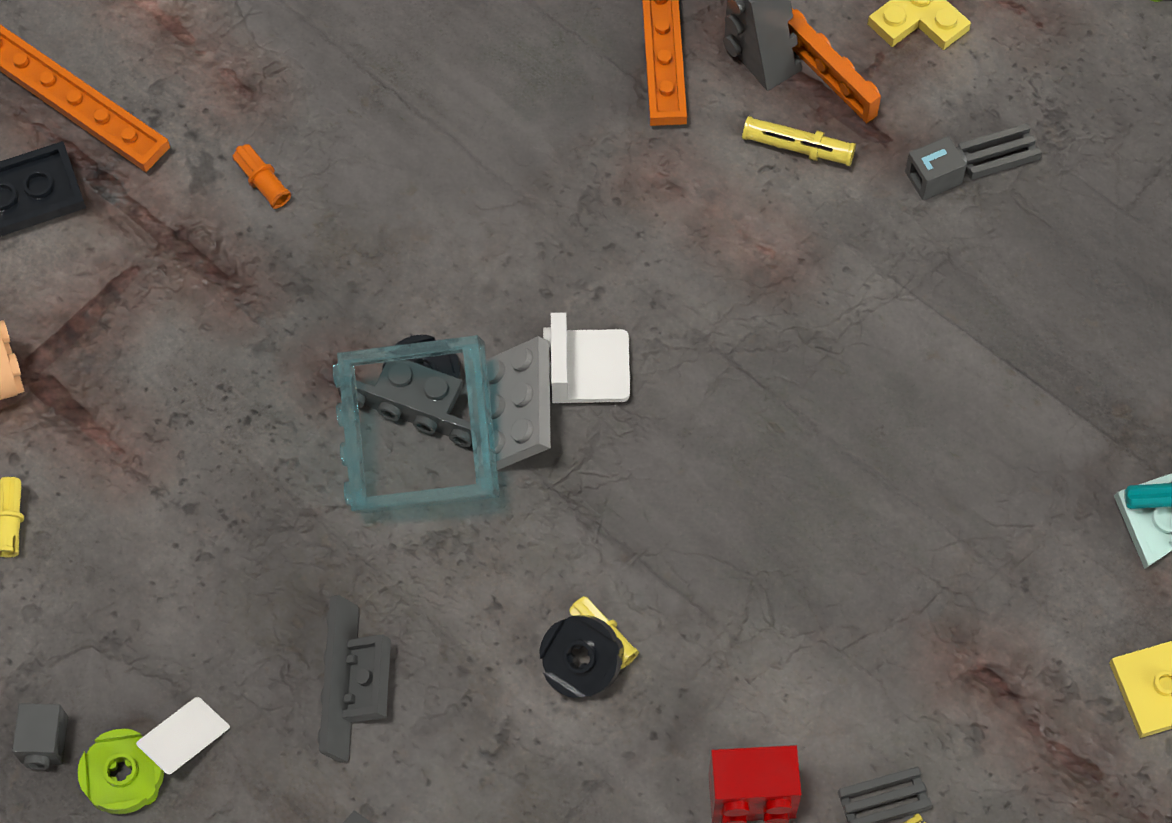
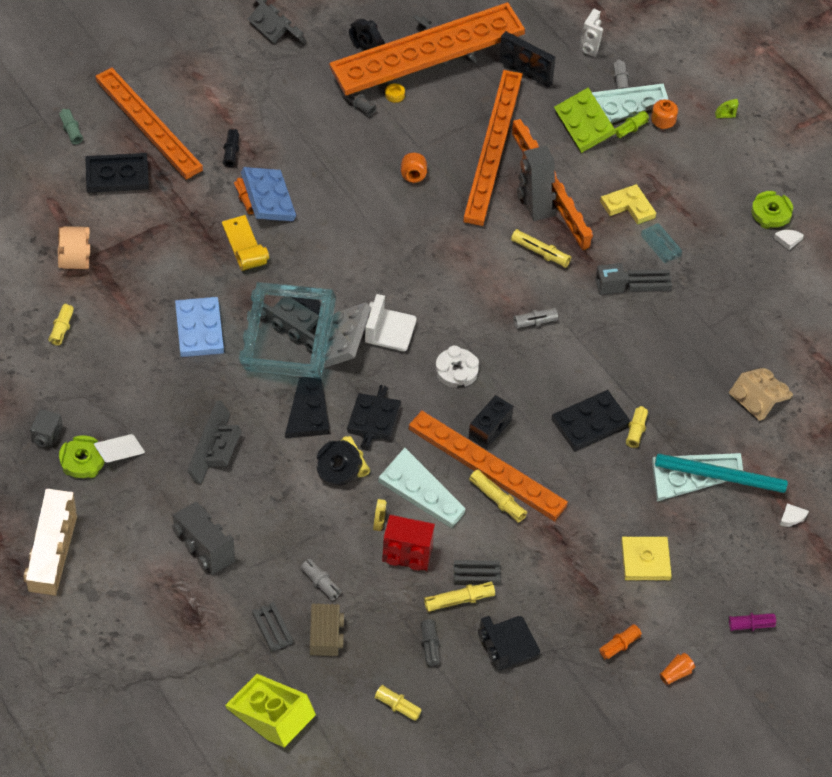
camera: 10 degrees right, 10 degrees down
(207, 91) = (231, 148): none -> black axle
(254, 452) = (199, 327): none -> light blue plate
(285, 271) = (243, 243): none -> yellow door
(299, 164) = (268, 194): none -> medium blue plate
(494, 562) = (308, 410): none -> black wing
(535, 46) = (413, 167): none -> orange head
(613, 545) = (374, 417): none -> black plate
(682, 734) = (380, 515): none -> light yellow tile
(732, 387) = (461, 357): none -> white plate
(734, 660) = (418, 486): none -> light aqua wing
(819, 501) = (490, 422): none -> black brick
(831, 276) = (522, 320): none -> light grey pin
(838, 583) = (492, 467): none -> orange plate
(869, 636) = (504, 501): none -> light yellow pin
(985, 446) = (590, 420): none -> black plate
(992, 79) = (657, 243): none -> clear light blue tile
(1068, 438) = (637, 427): none -> light yellow axle

